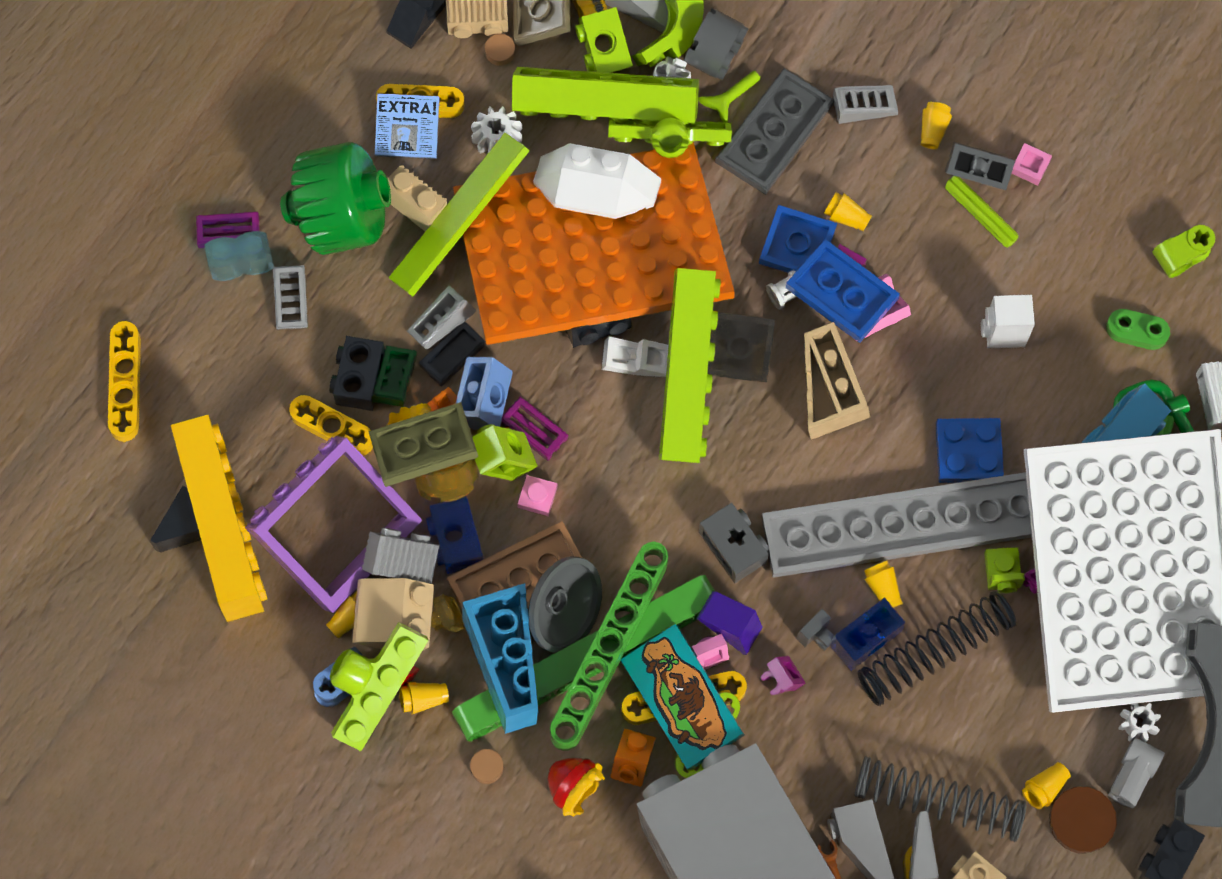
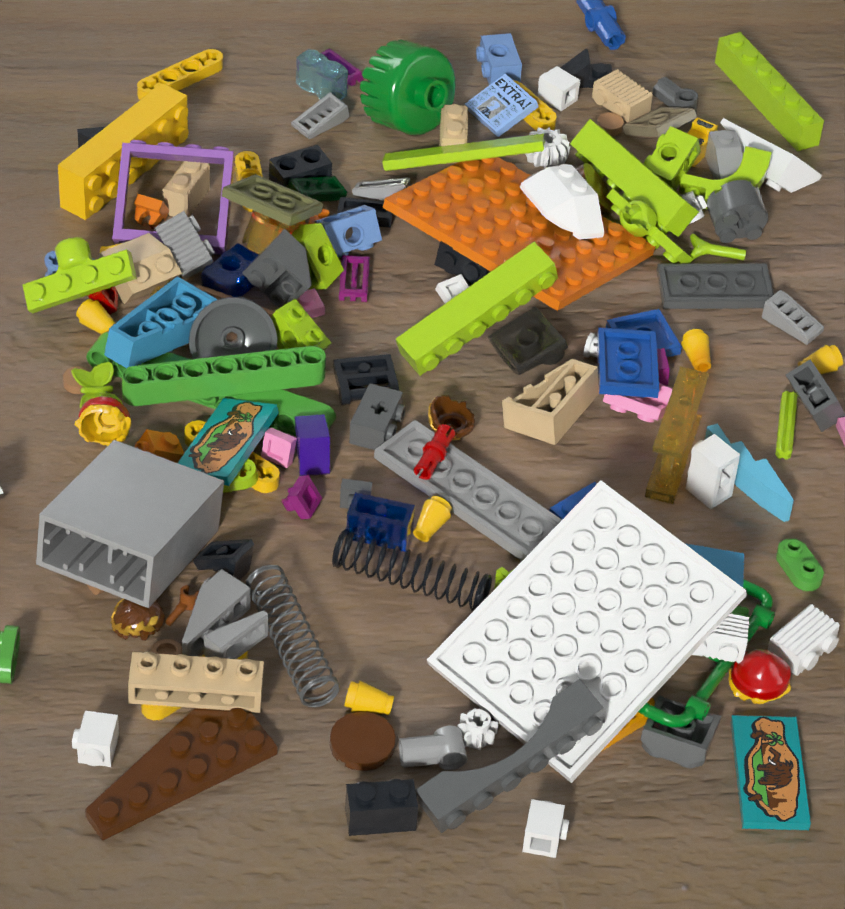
camera: 50 degrees right, 25 degrees down
(307, 543) = (152, 207): none -> orange tile
(313, 505) = (187, 188): none -> tan brick
(332, 64) = (498, 57): none -> medium blue brick
(421, 57) = (558, 88): none -> white brick
(507, 498) = (280, 270): none -> dark grey slope
(513, 760) = (95, 381): none -> lime piece
(588, 135) = (596, 182): none -> tile
(594, 539) = (297, 328): none -> lime brick
(666, 510) = (361, 372): none -> black plate
(782, 481) = (451, 413): none -> reddish brown hair
(815, 791) = (230, 556): none -> black slope
(823, 529) = (434, 451): none -> red pin
(953, 317) = (676, 435): none -> clear yellow fence
(1044, 287) = (758, 479): none -> medium azure slope

